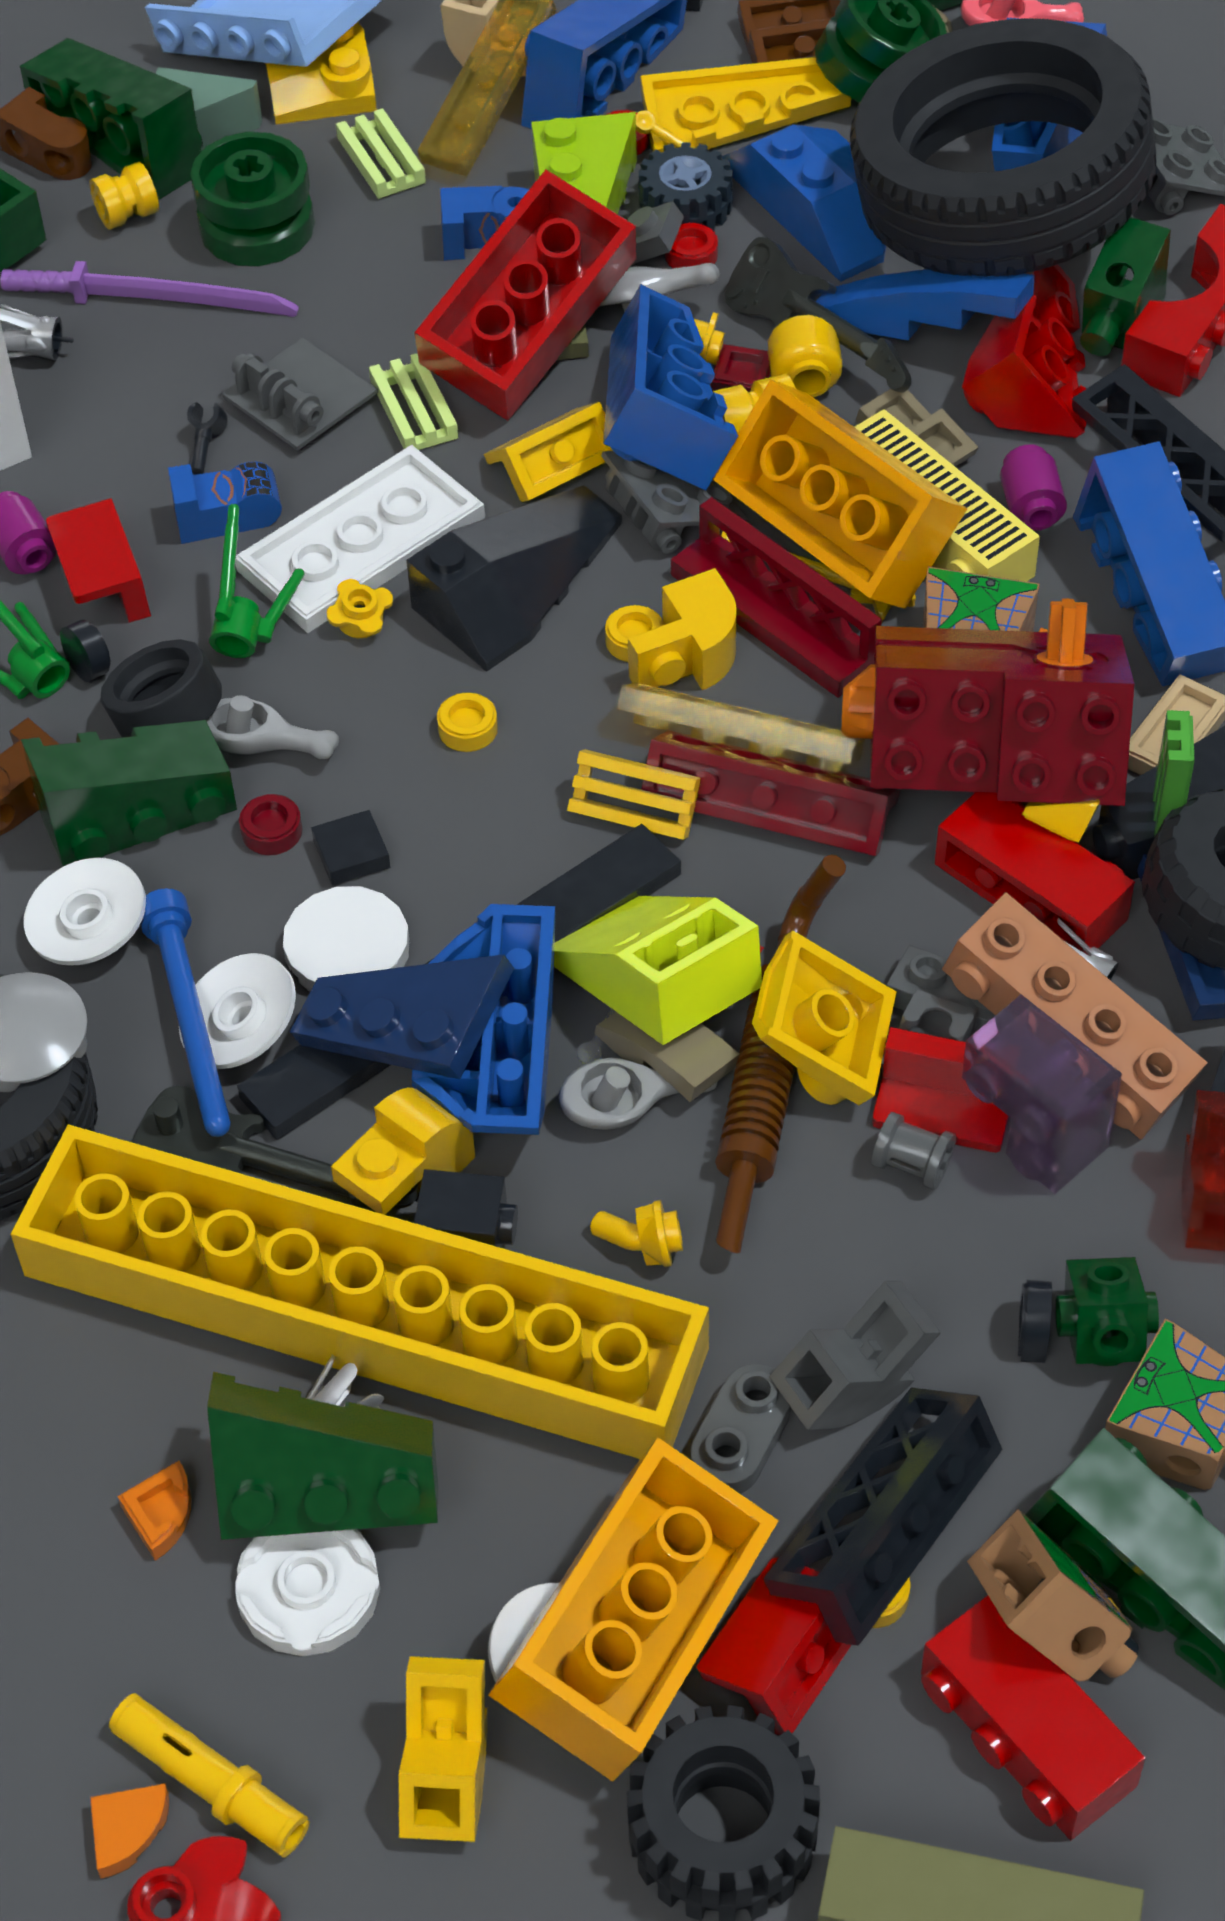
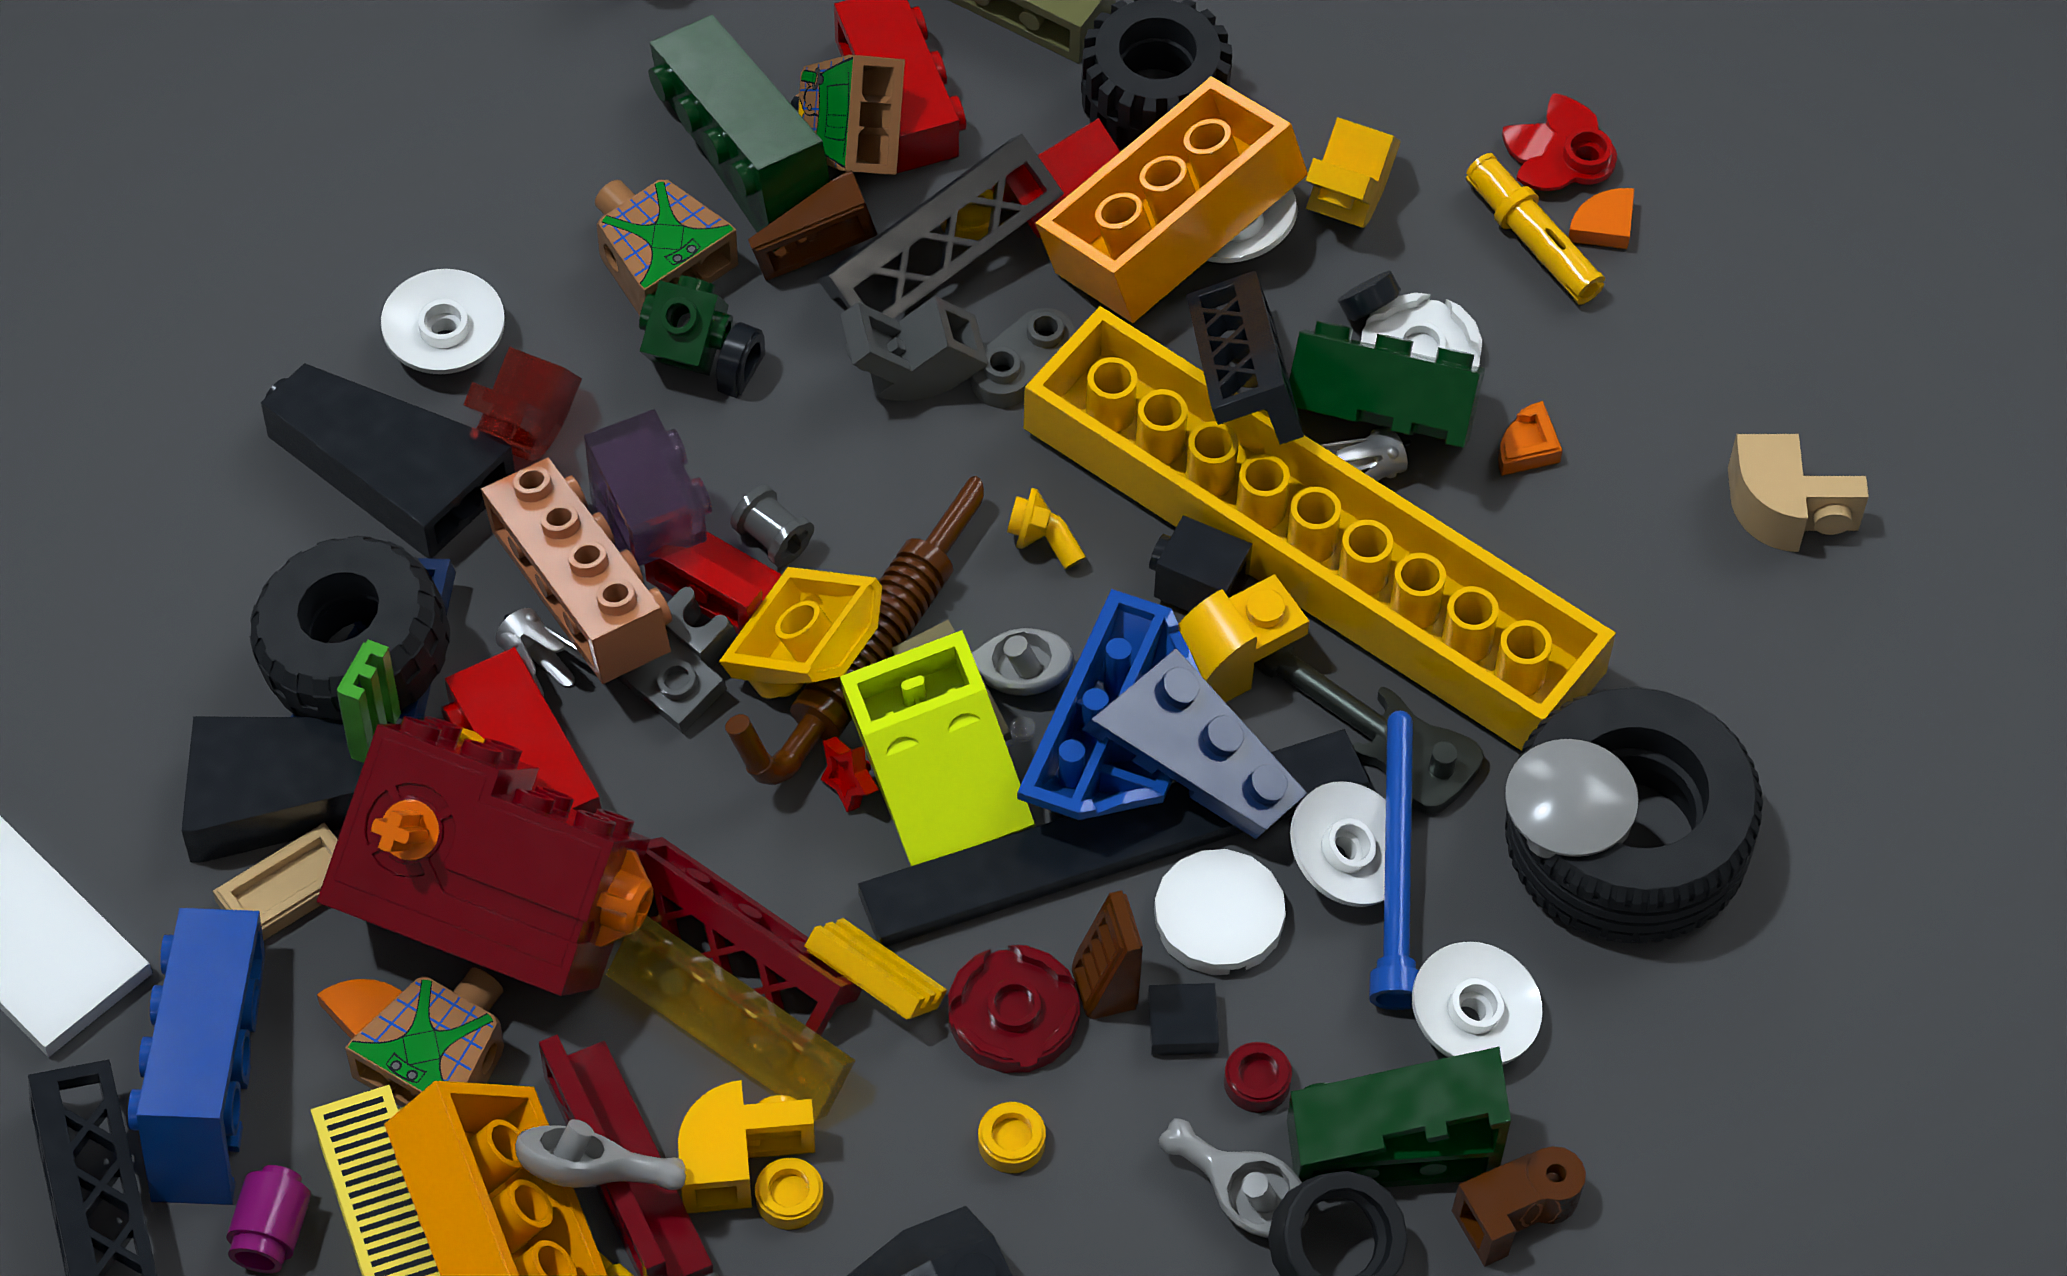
camera: 165 degrees left, 5 degrees up
(379, 1608) = (1369, 296): none -> black tile
(421, 841) = (1109, 960): none -> reddish brown slope
(461, 1424) = (1255, 343): none -> black fence
(503, 817) = (1013, 1009): none -> dark red tile
(797, 528) = (582, 1158): none -> light grey piece
(1020, 1472) = (814, 228): none -> reddish brown slope

